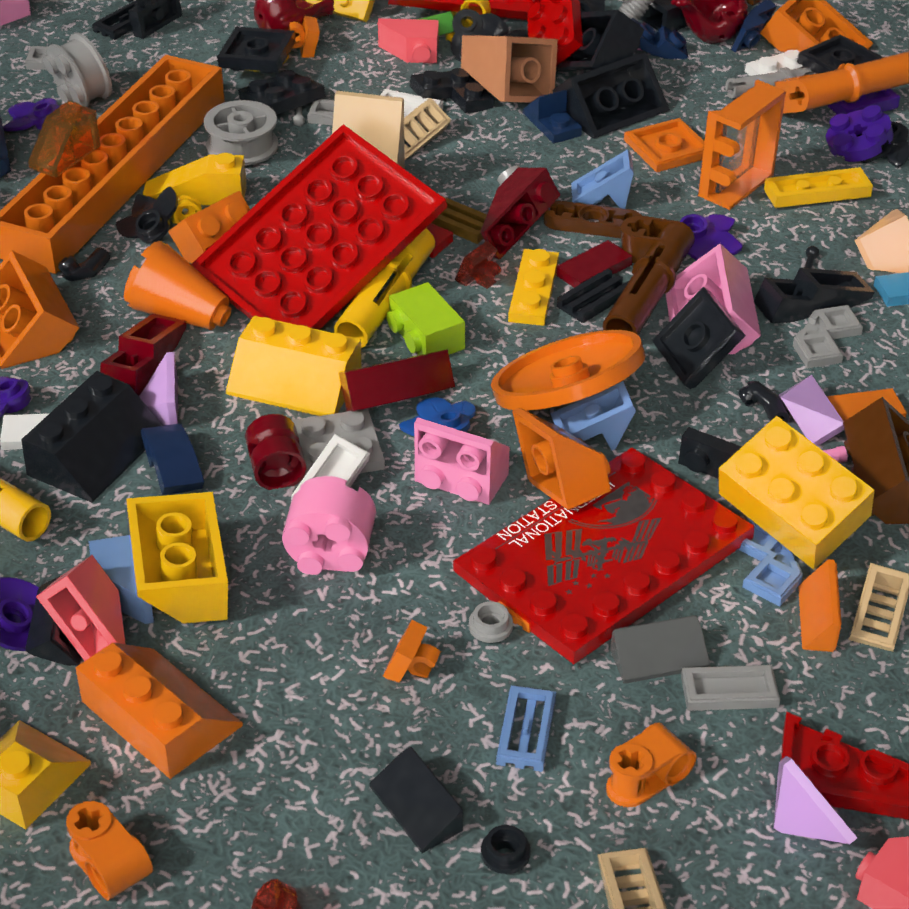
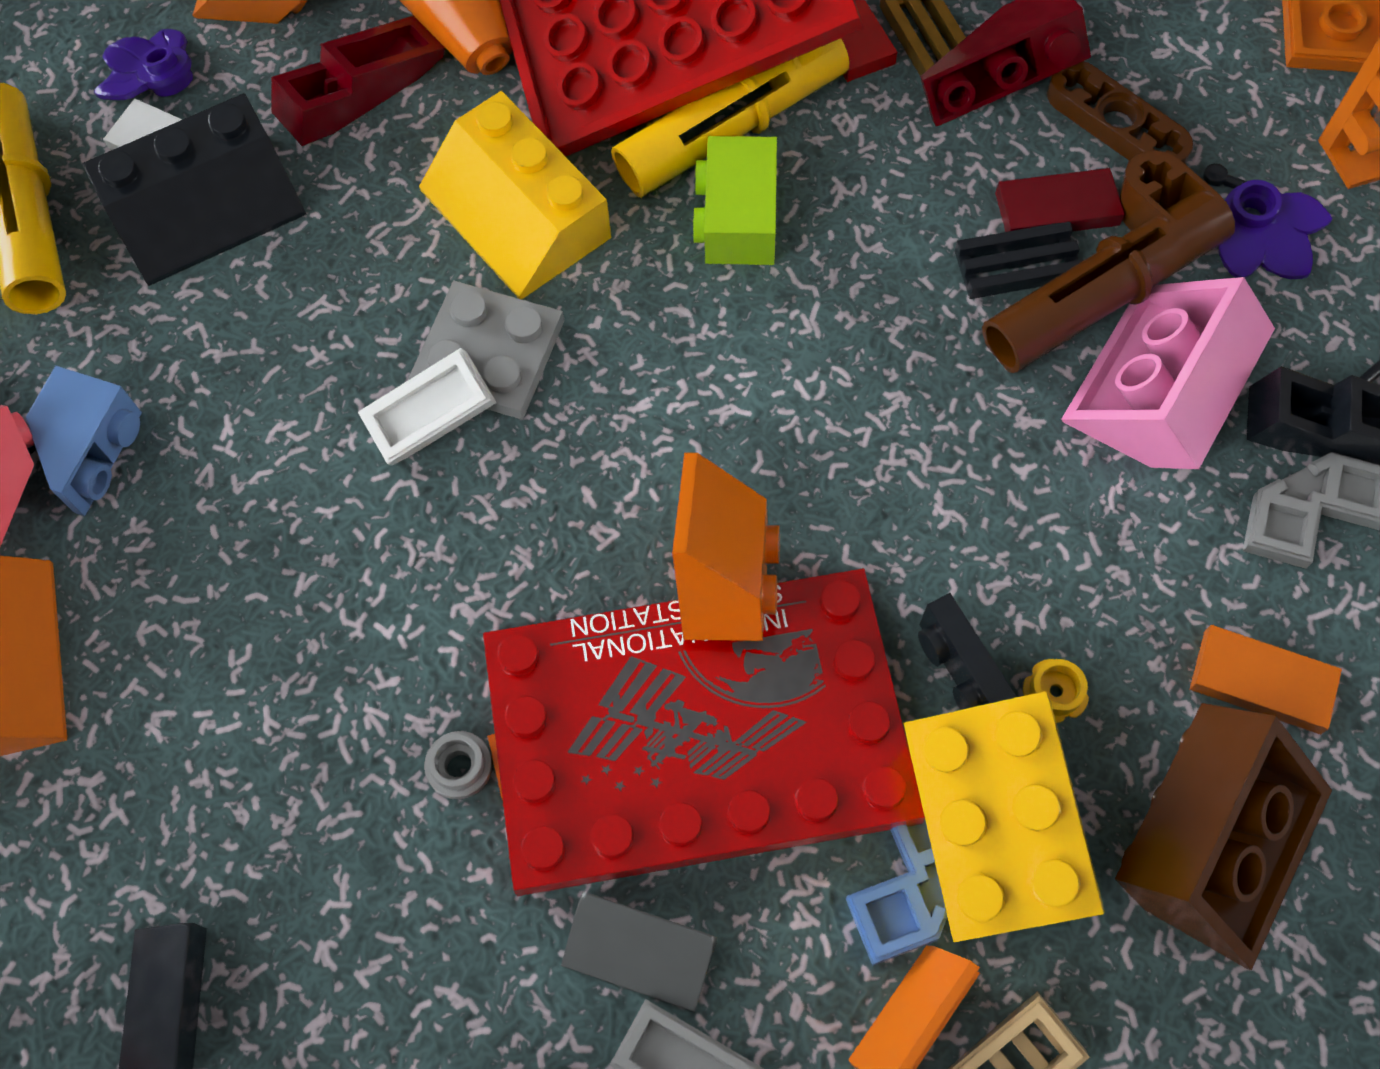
camera: 35 degrees right, 25 degrees up
(162, 391) = (337, 155): lavender slope -> none
(173, 458) = (267, 269): dark blue slope -> none
(179, 556) = (137, 446): yellow slope -> none
(275, 452) = (385, 334): dark red wheel -> none
(329, 526) = (343, 501): bright pink brick -> none
(396, 380) = (621, 287): dark red slope -> none
(412, 654) = (313, 761): orange tile -> none
(443, 413) = (646, 377): blue plate -> none
(459, 461) = (602, 470): bright pink slope -> none
(479, 266) = (885, 133): clear red tile -> none
(522, 757) = (398, 985): medium blue tile -> none
(533, 287) = (943, 202): yellow plate -> none
(568, 370) = (852, 400): orange dish -> none
(601, 413) = (834, 495): medium blue slope -> none
(609, 179) = (1177, 60): medium blue slope -> none
(698, 338) = (1096, 428): black tile -> none
(771, 402) = (1132, 585): black arm -> none
(812, 411) = (1177, 642): lavender slope -> none
(838, 453) = (1154, 740): bright pink piece -> none

